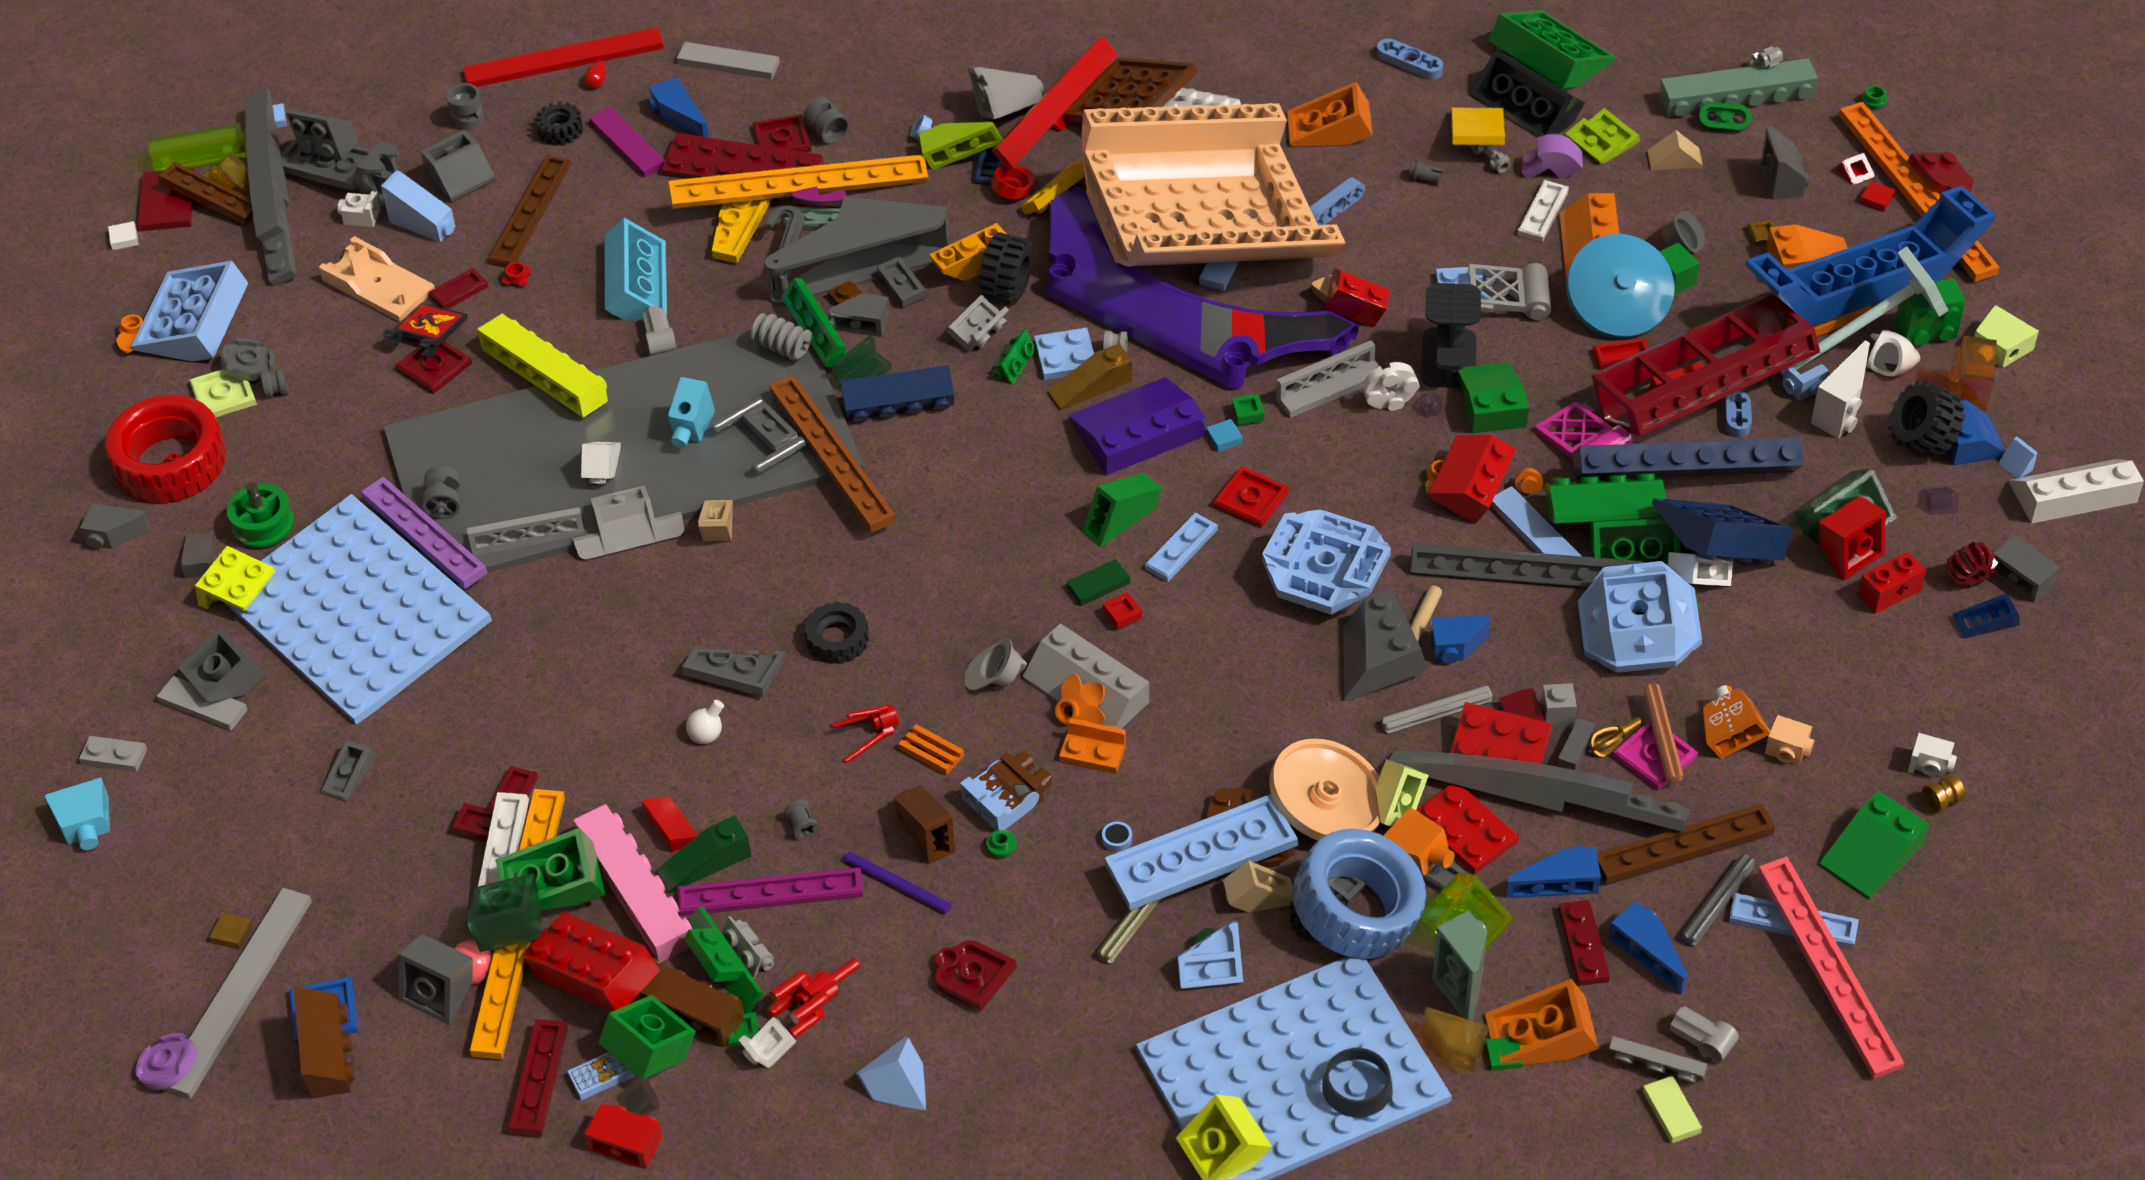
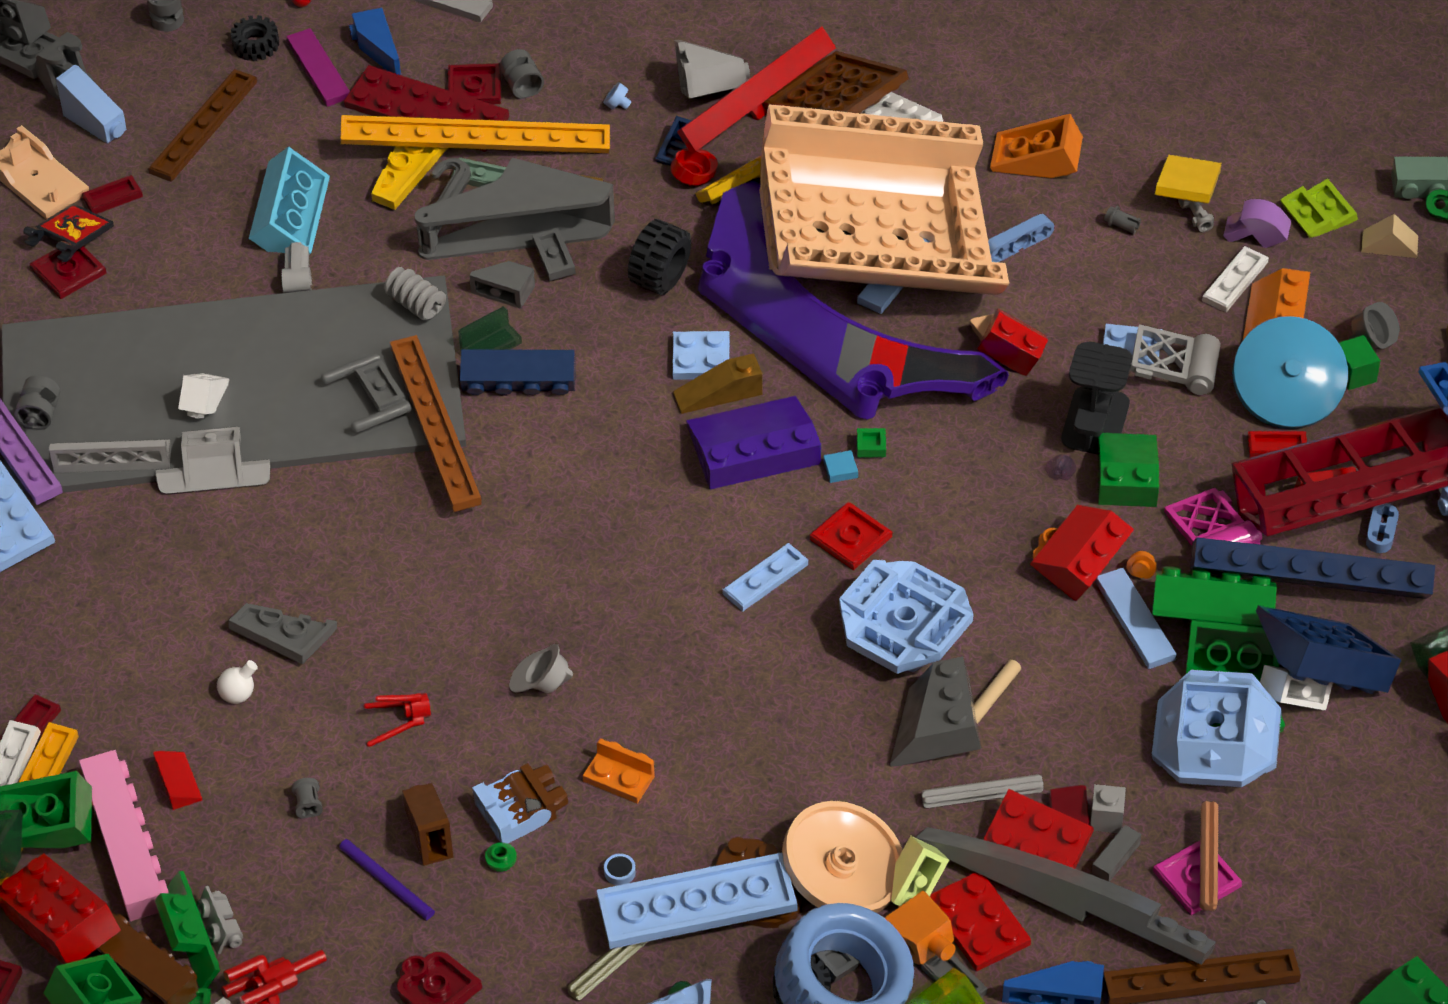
camera: 10 degrees right, 0 degrees up
(359, 209) = (36, 98): white brick -> none
(457, 165) = (141, 67): dark grey slope -> none
(516, 274) = (172, 188): red plate -> none
(543, 365) = (172, 286): neon yellow brick -> none
(690, 411) = (303, 358): medium azure torso -> none
(706, 854) = (205, 817): dark green slope -> none
(716, 520) = (302, 474): tan slope -> none
(771, 891) = (259, 867): magenta tile -> none
(811, 198) = (486, 153): magenta slope -> none
(811, 317) = (454, 283): green fence -> none
(836, 614) = (395, 629): black tyre -> none
(843, 292) = (493, 256): reddish brown plate -> none
(934, 745) = (432, 740): orange tile -> none
(956, 141) = (644, 116): lime slope -> none
(965, 256) = (619, 237): light orange slope -> none
(976, 323) = (617, 309): light grey bracket -> none
(1015, 358) = (648, 352): green hinge -> none
(1067, 653) = (630, 701): light grey slope -> none
(1084, 700) = (619, 720): orange plate -> none
(1098, 582) = (671, 600): dark green tile -> none
(1112, 339) = (759, 349): light grey wheel -> none
(1119, 506) = (711, 524): green slope -> none
(1122, 610) = (686, 634): red plate -> none
(1257, 888) = (745, 948): tan slope -> none
(1328, 383) = (962, 429): light grey fence -> none
(1400, 382) = (1009, 440): white plate -> none
(1423, 66) = (1132, 87): medium blue beam -> none
(1457, 636) = (1023, 718): blue slope -> none
(1508, 565) = (1096, 650): dark grey tile -> none
(1526, 96) = (1249, 154): black slope -> none
(1549, 47) = (1287, 105): green slope -> none
(1619, 733) = (1164, 849): pearl gold piece -> none
(1732, 722) = (1284, 856): orange torso -> none
(1789, 740) = (1340, 886): light nougat brick -> none

